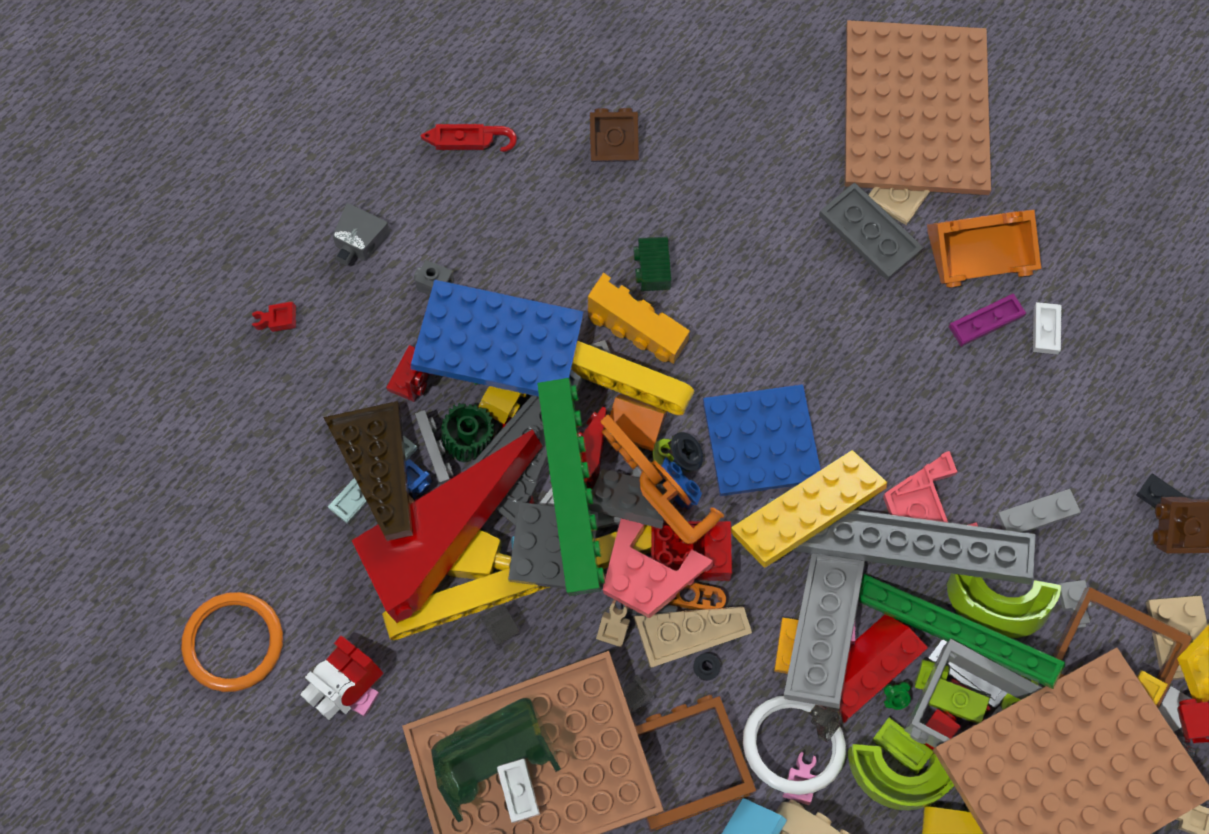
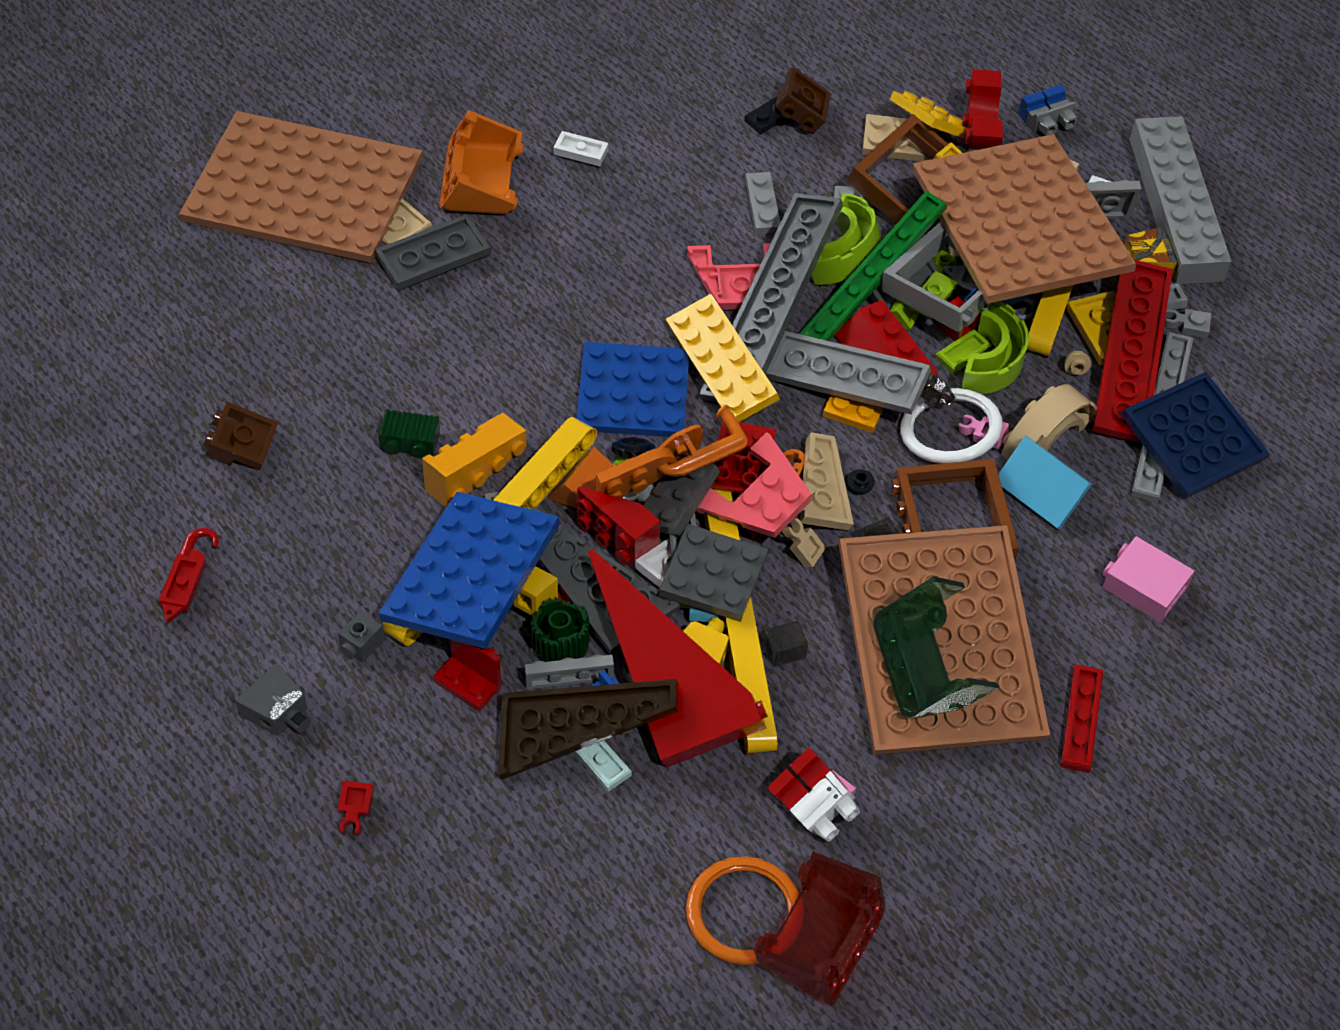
camera: 80 degrees left, 15 degrees down
(207, 706) = (825, 928): none -> clear red windscreen
(518, 790) = (967, 644): white plate -> none
(569, 487) = (663, 526): green brick -> none
(901, 700) = (920, 339): green plate -> none
(987, 320) = (557, 191): magenta tile -> none

